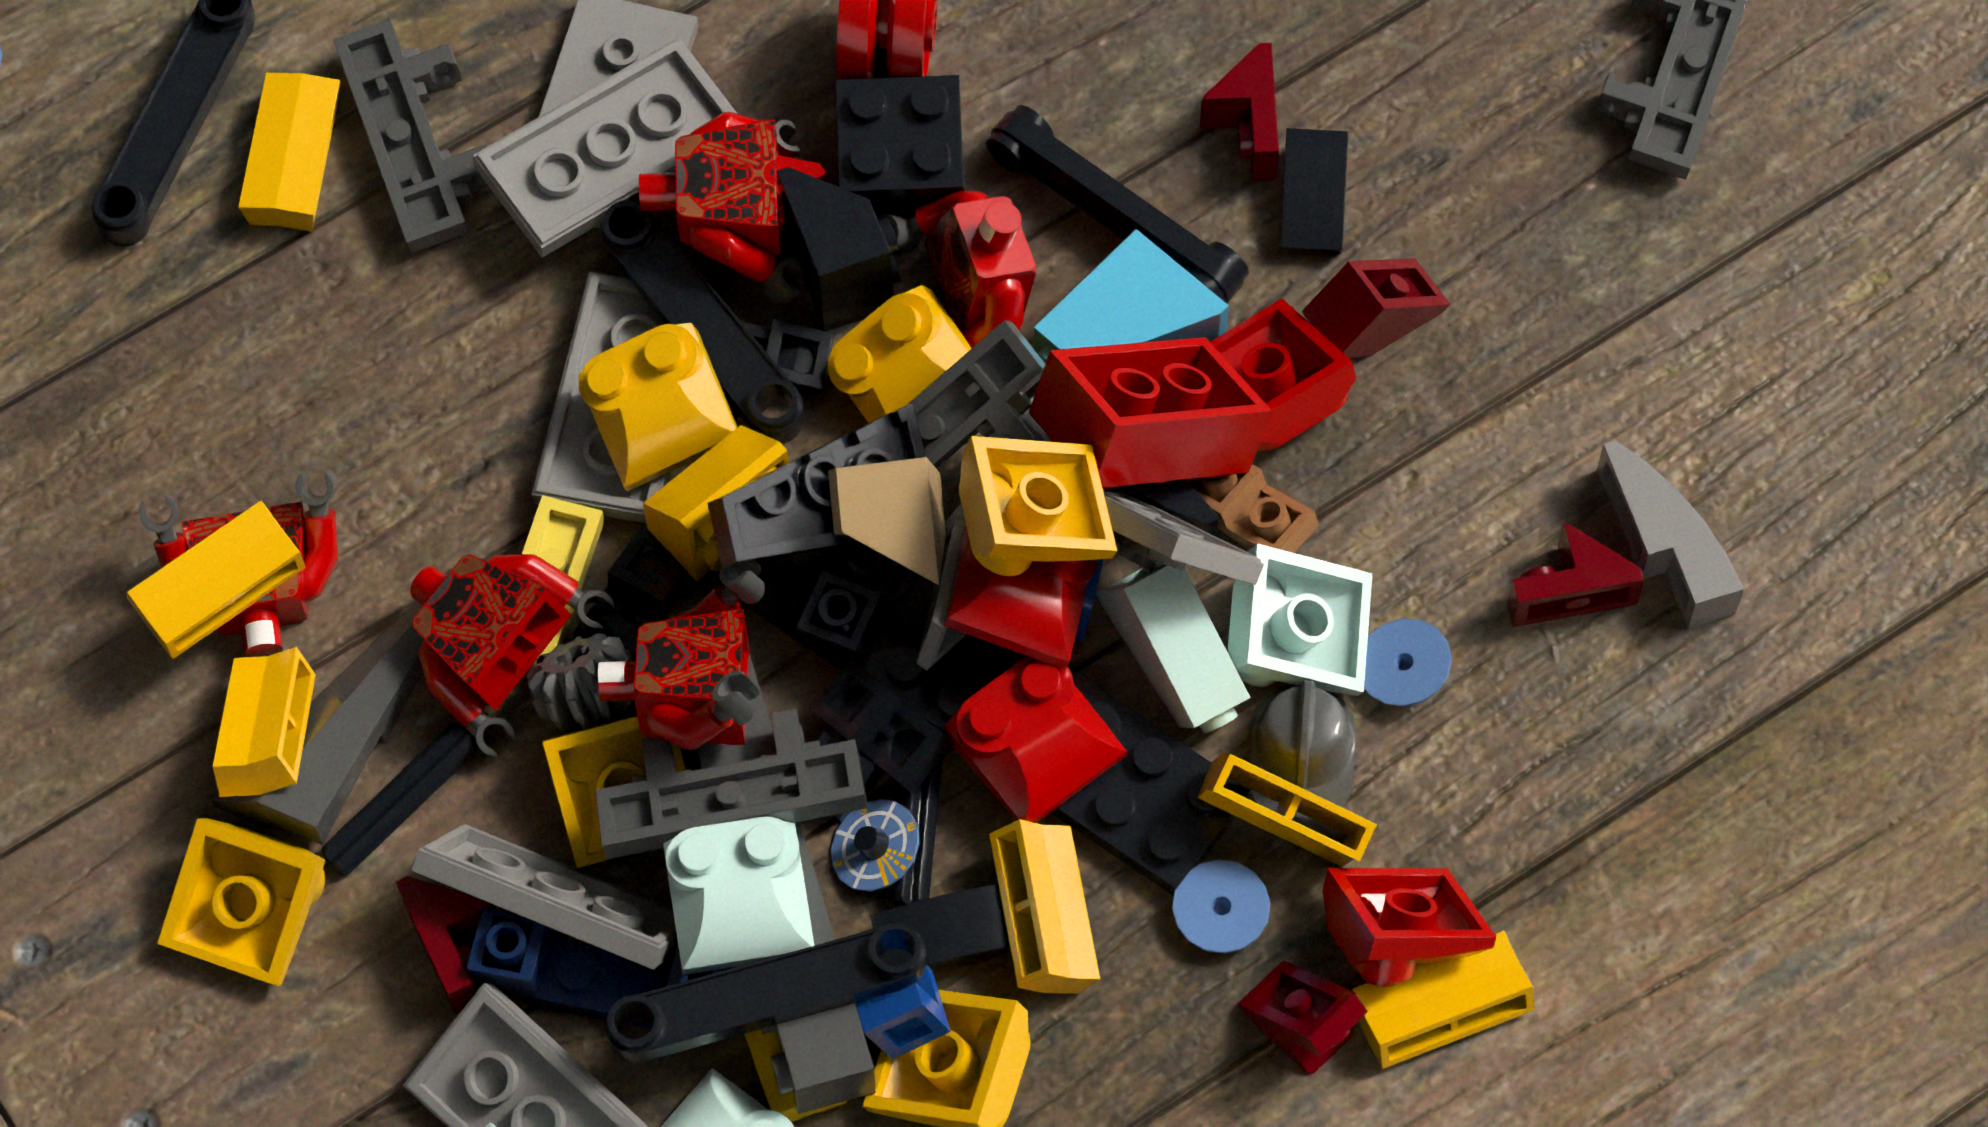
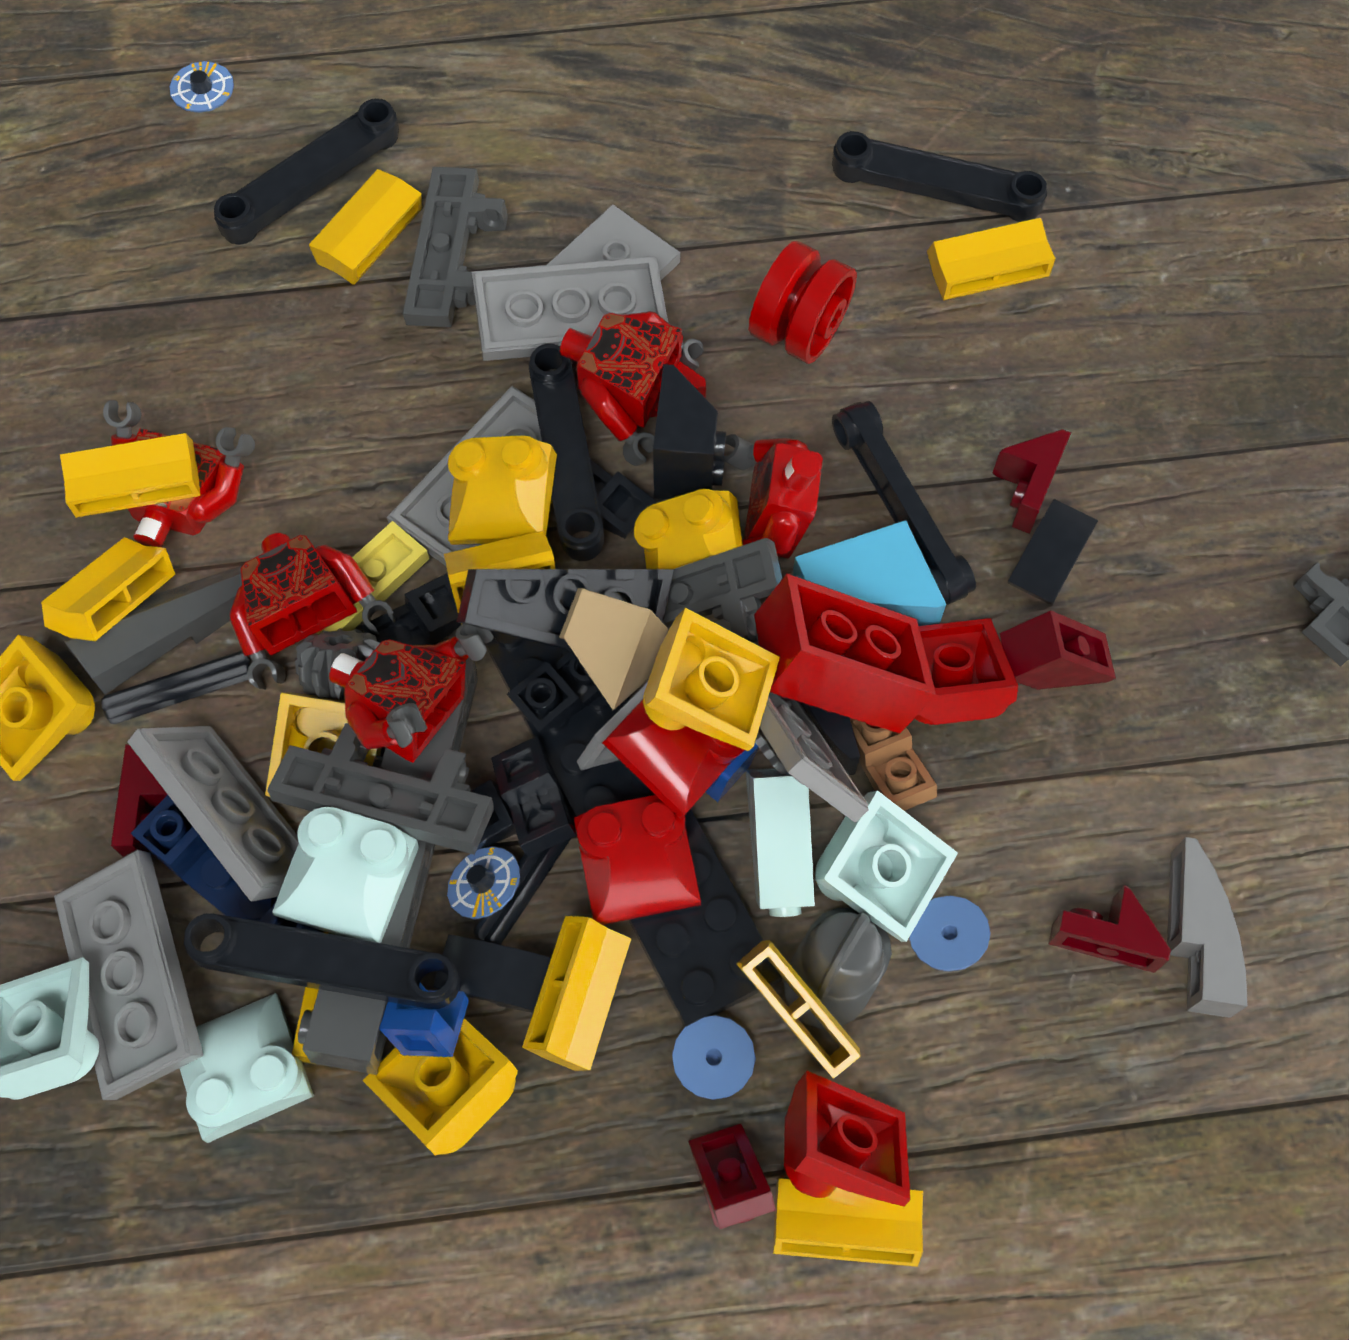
camera: 25 degrees right, 0 degrees up
(900, 140) = (770, 388): black brick -> none

